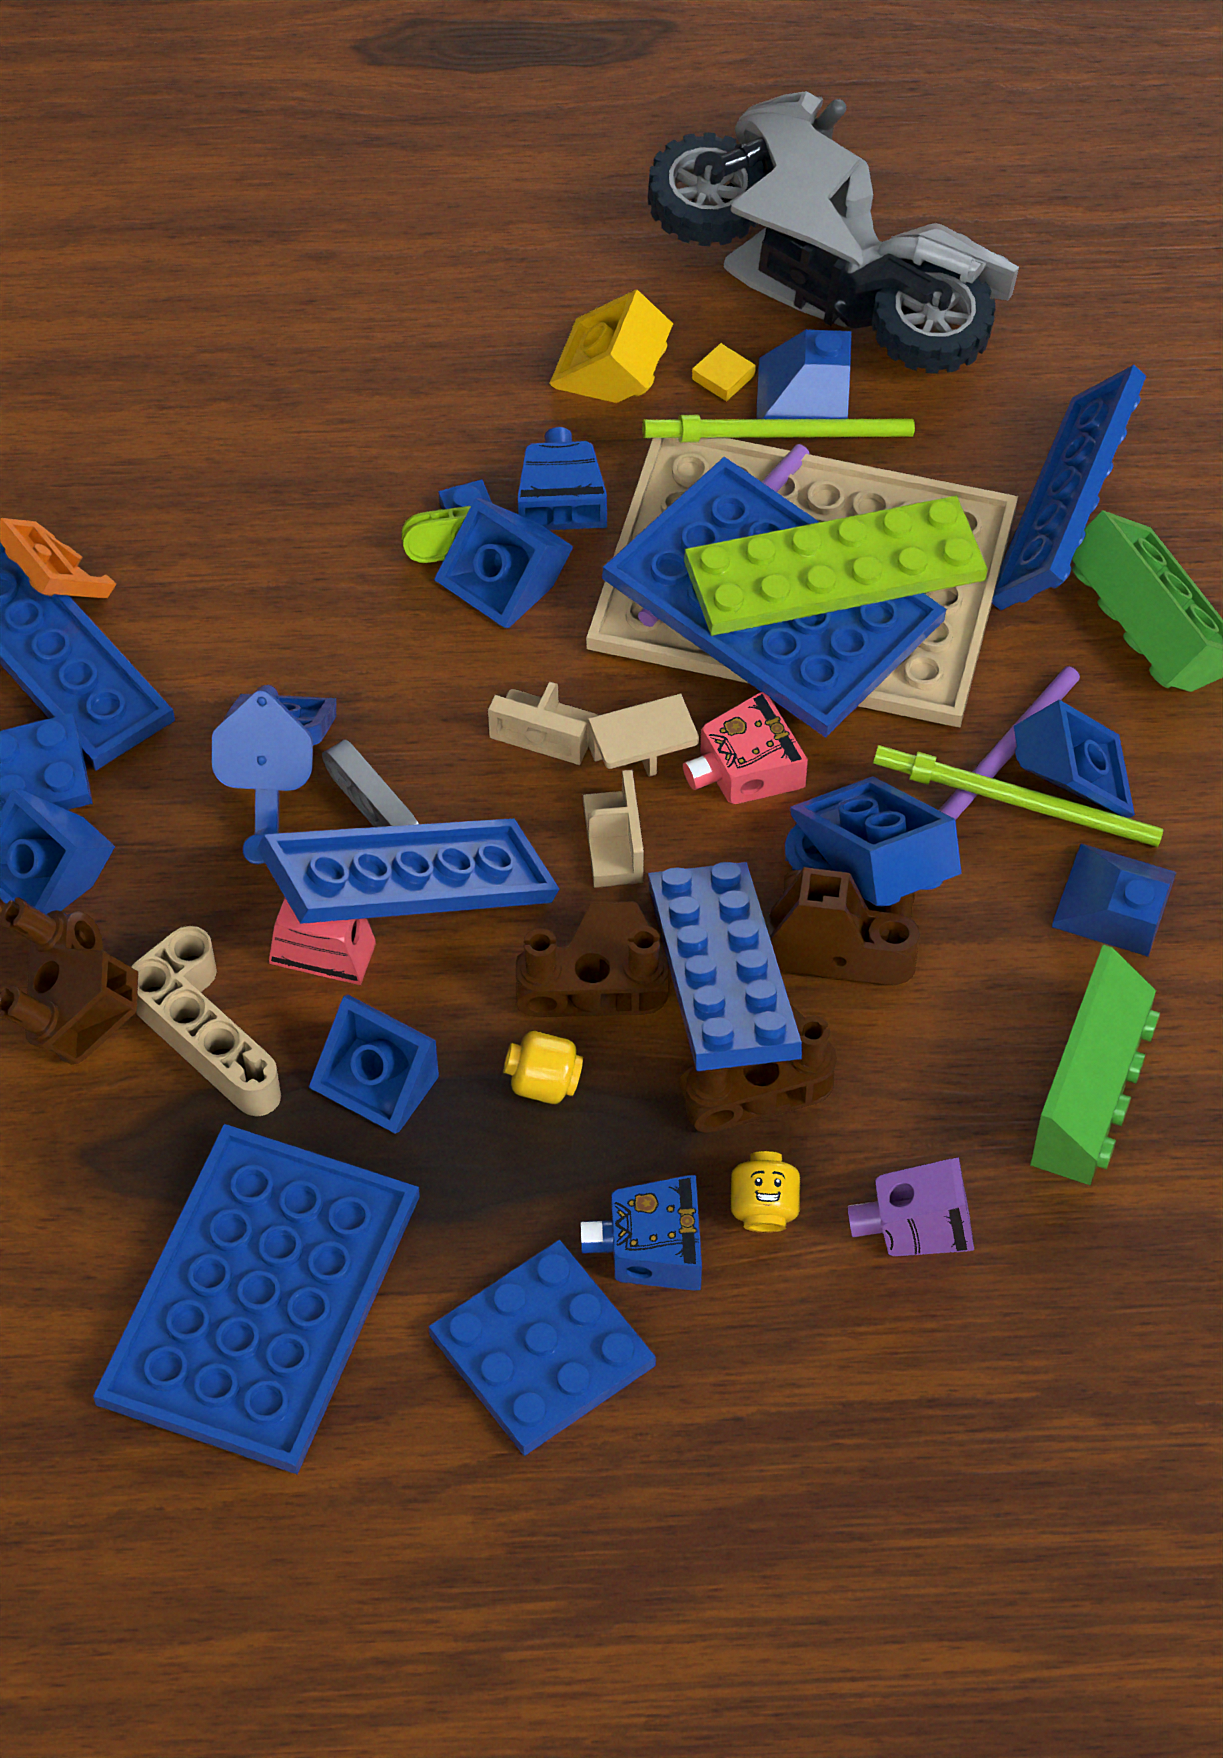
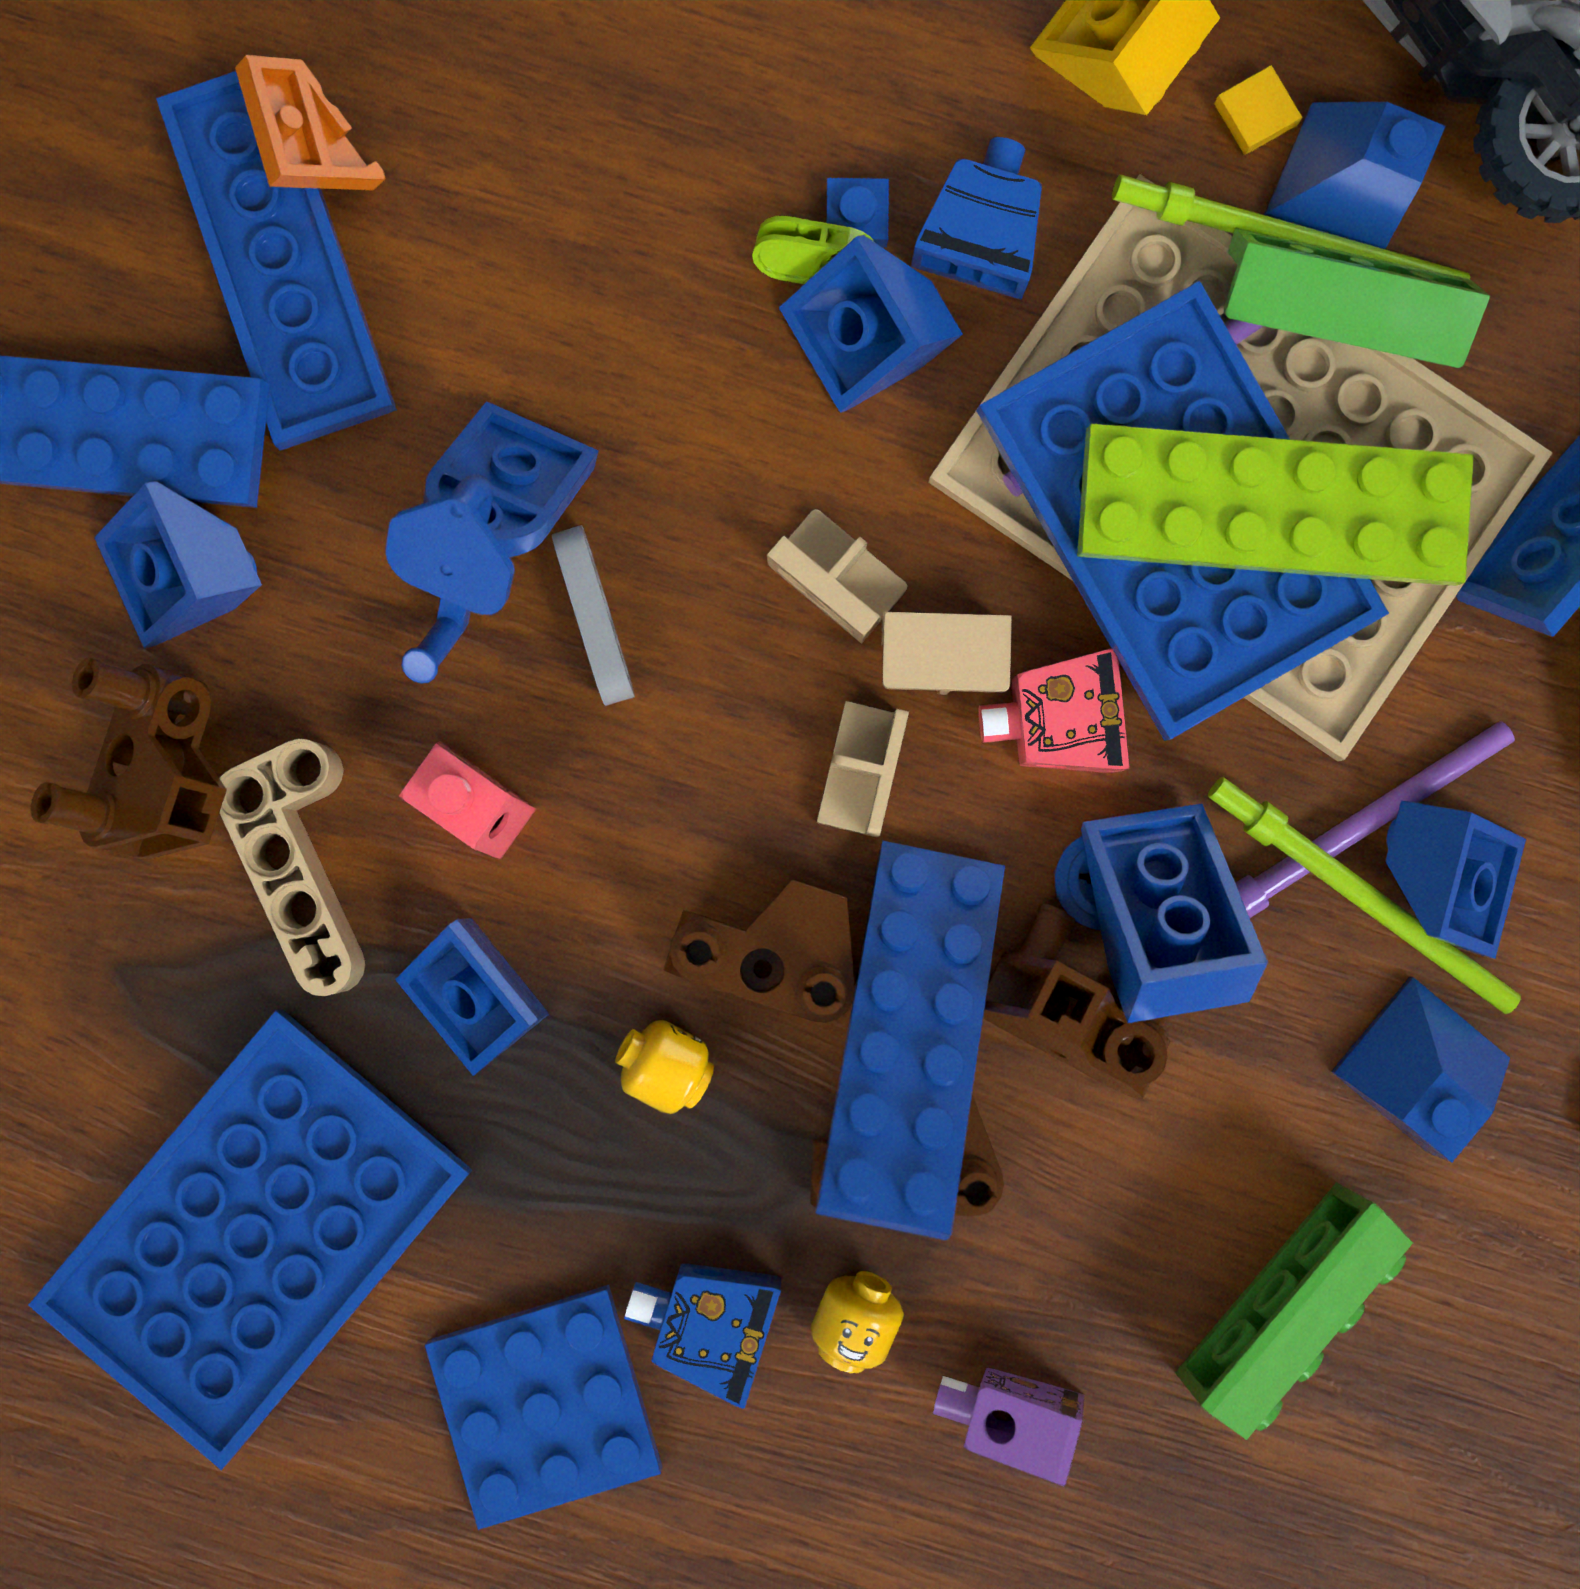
camera: 20 degrees right, 30 degrees up
(406, 869) = (573, 780): blue plate -> none
(836, 444) = (1353, 299): none -> bright green panel

